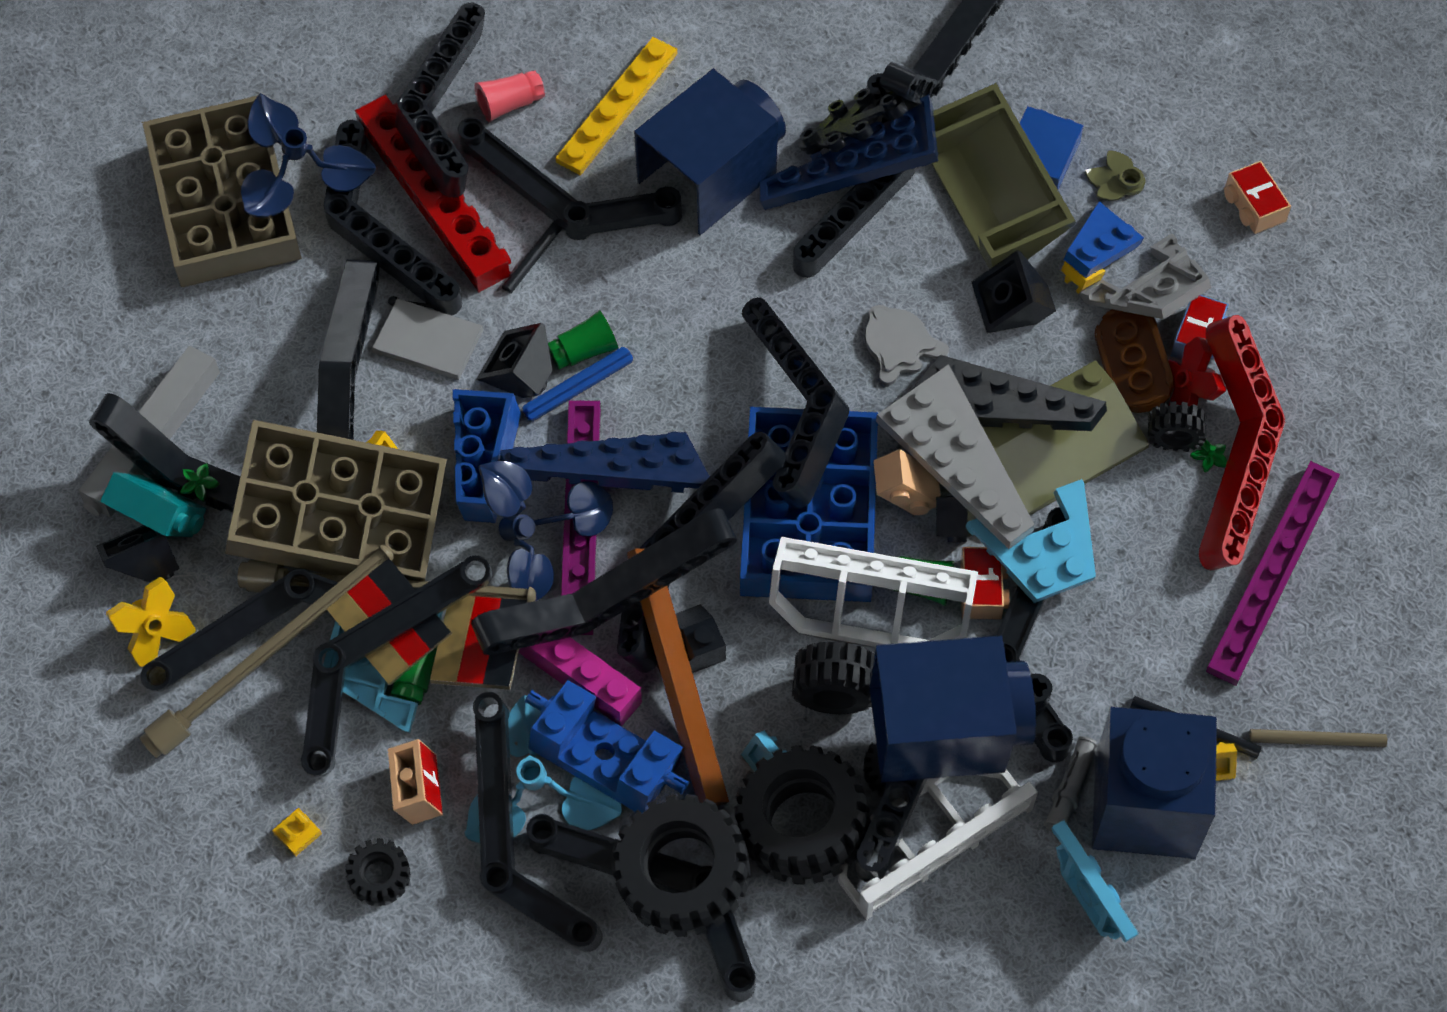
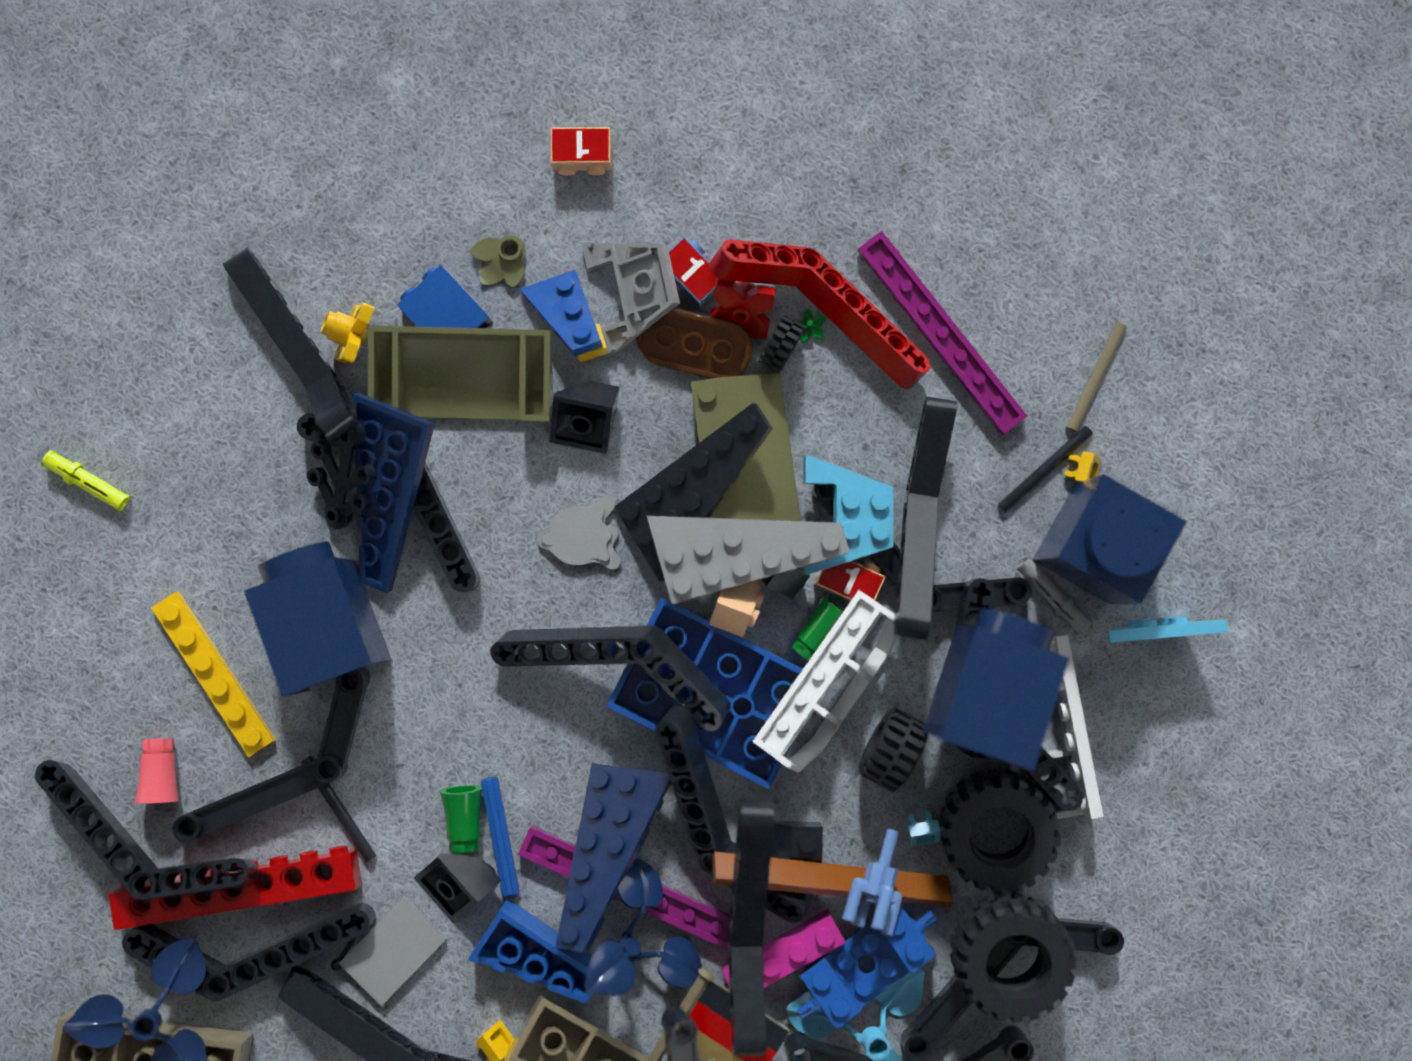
camera: 70 degrees left, 25 degrees up
(689, 711) = (879, 890): none -> medium blue plant
(980, 74) = (347, 331): none -> yellow plant
(1082, 614) = (920, 519): none -> black beam

